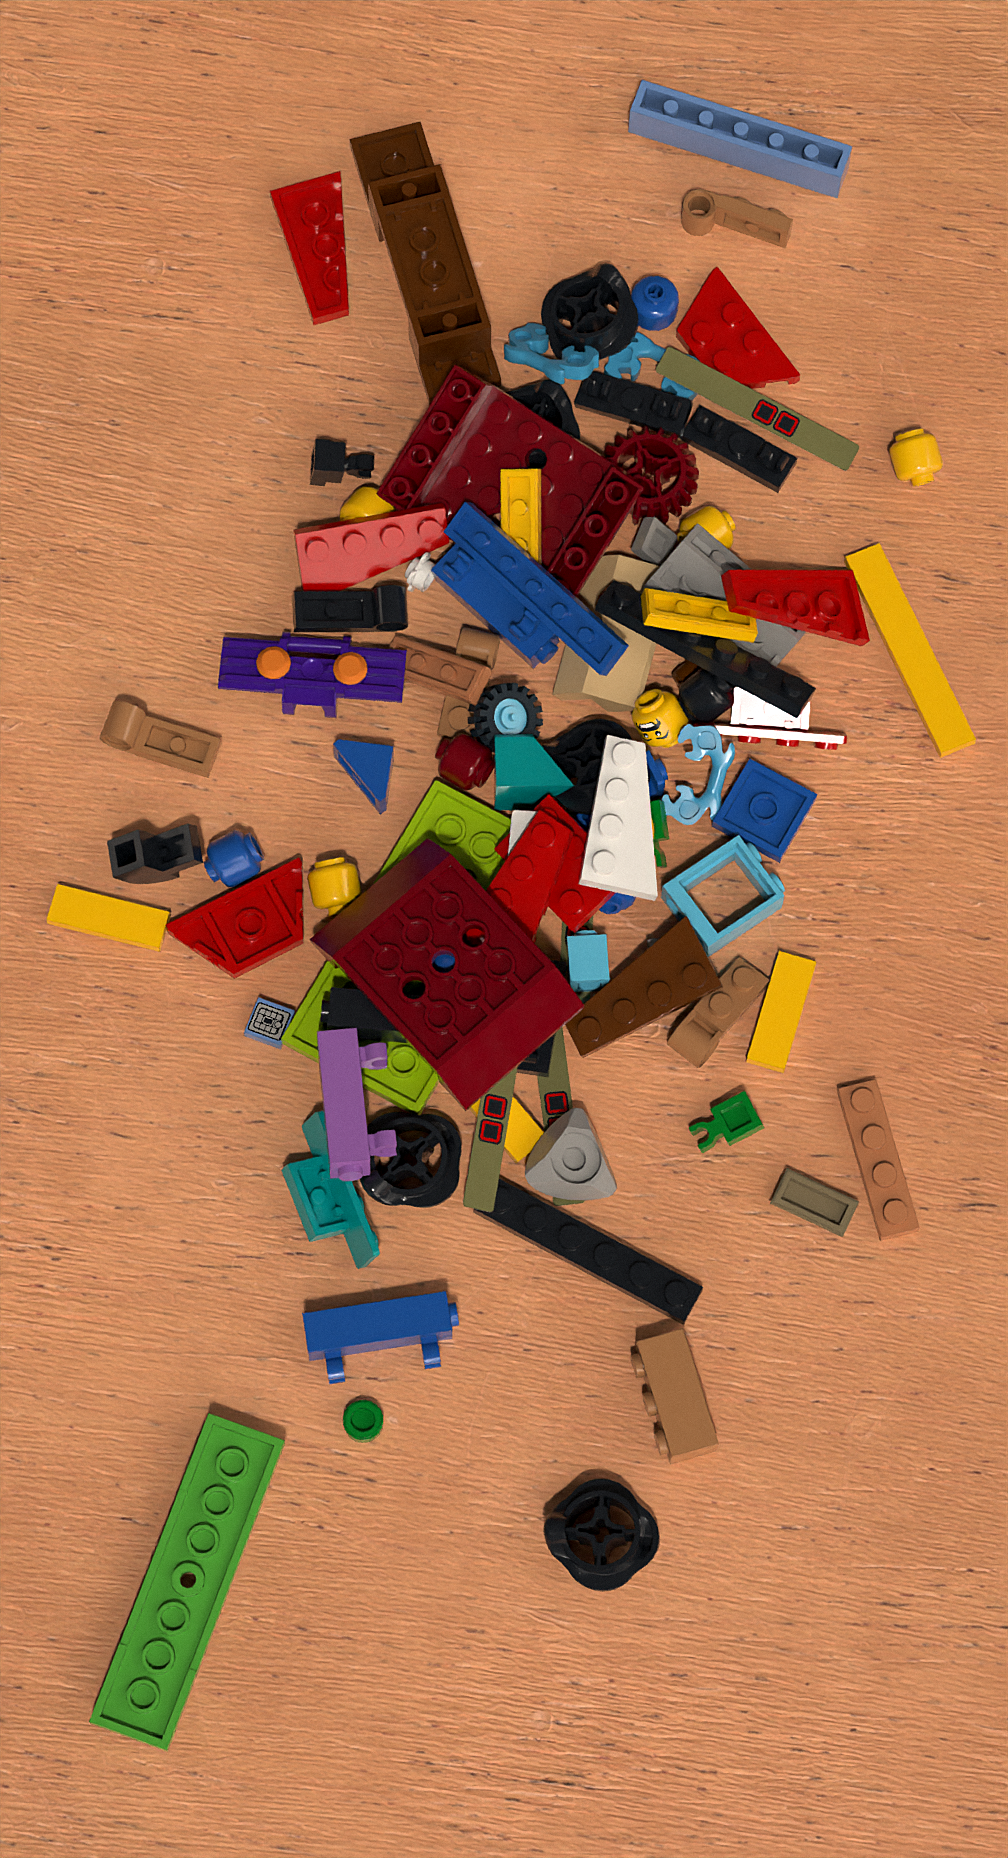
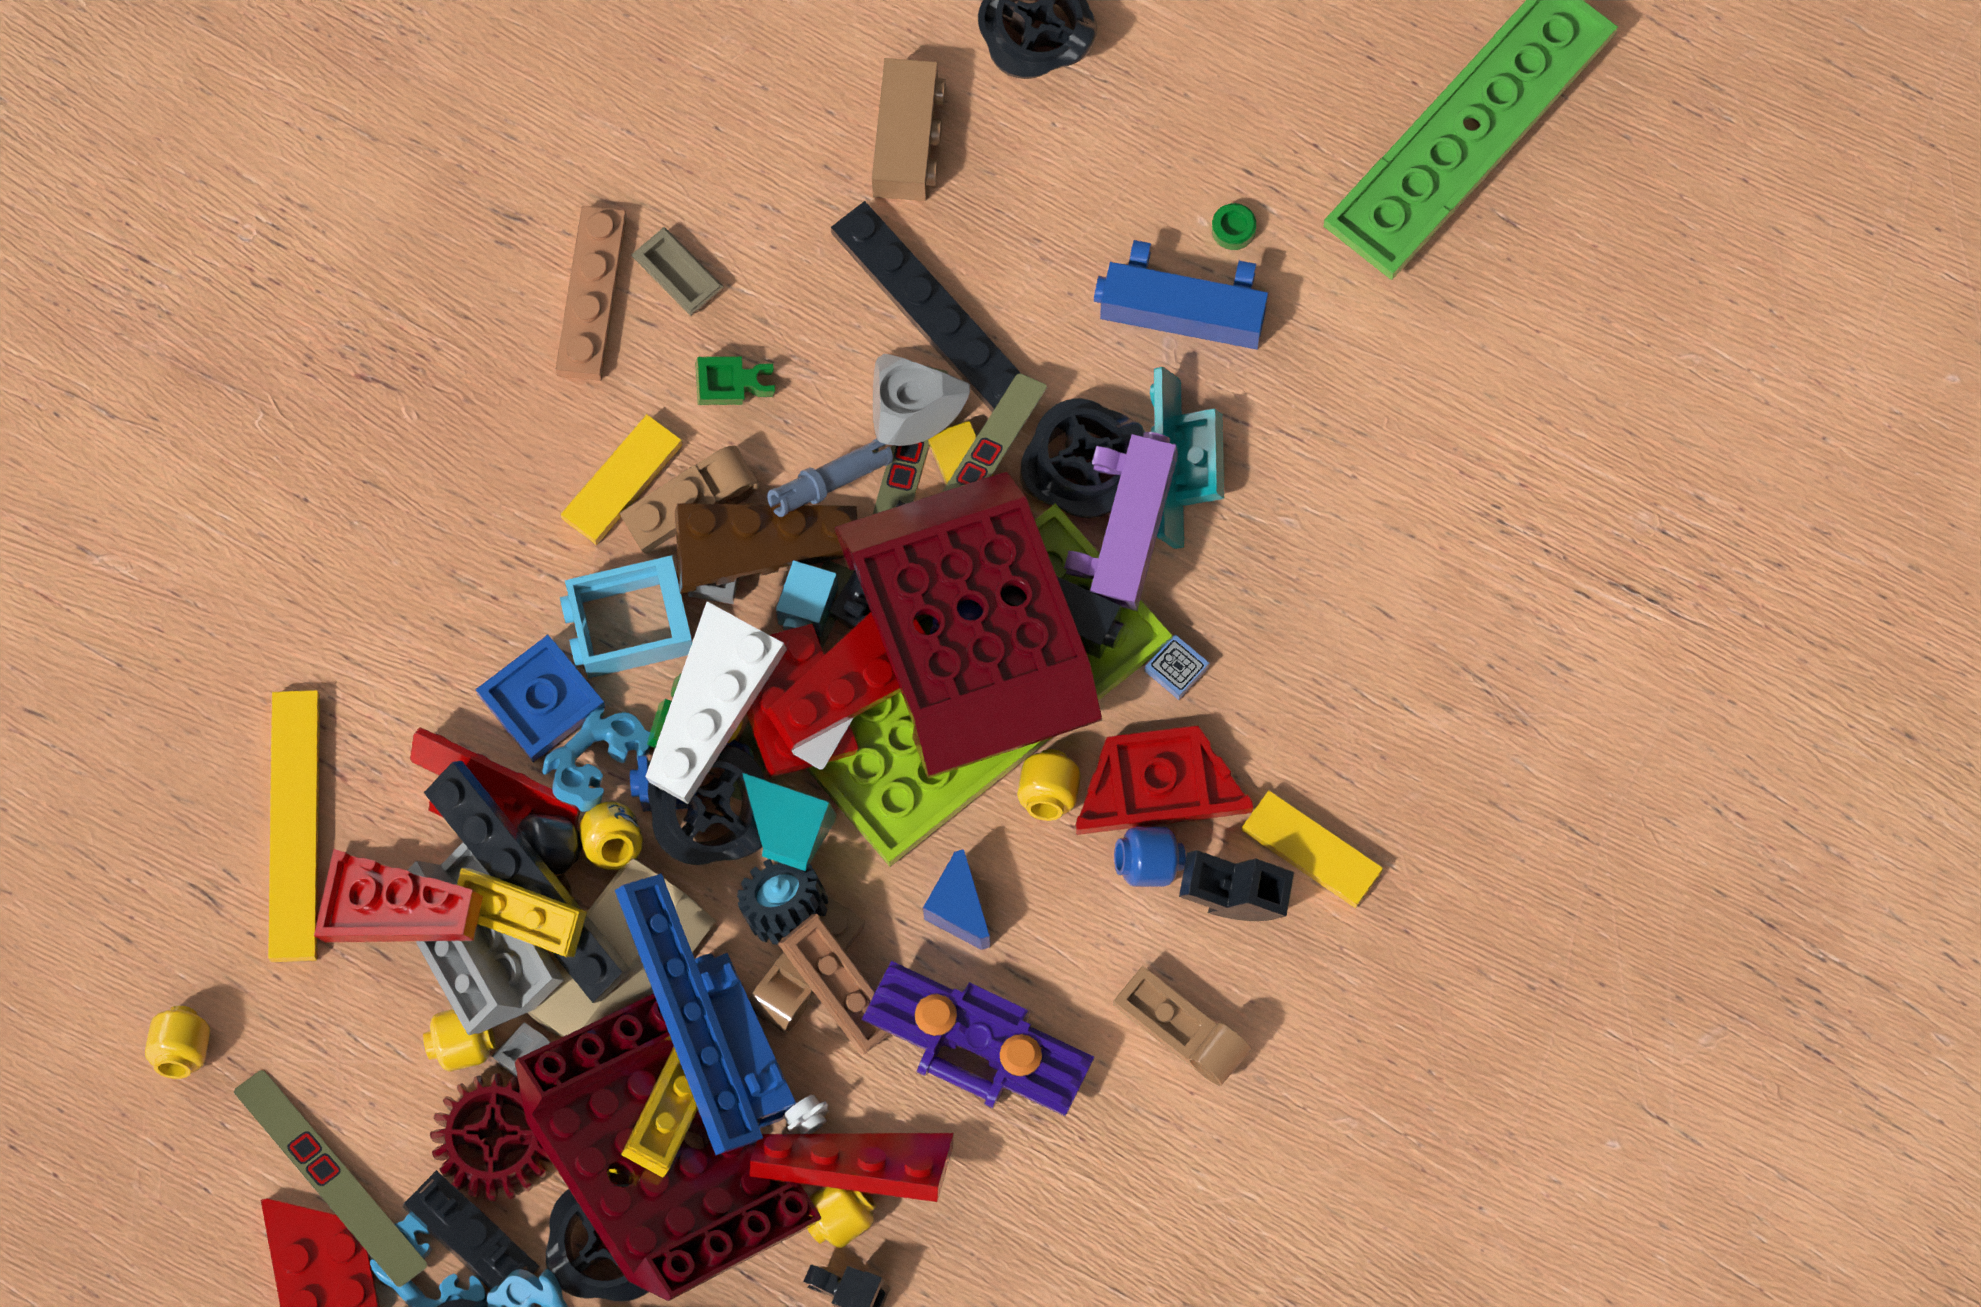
camera: 155 degrees left, 0 degrees up
(351, 611) = (904, 1100): black plate -> none
(464, 761) = (848, 869): dark red head -> none
(609, 1063) = (814, 484): none -> sand blue pin
(739, 448) = (372, 1138): black plate -> none

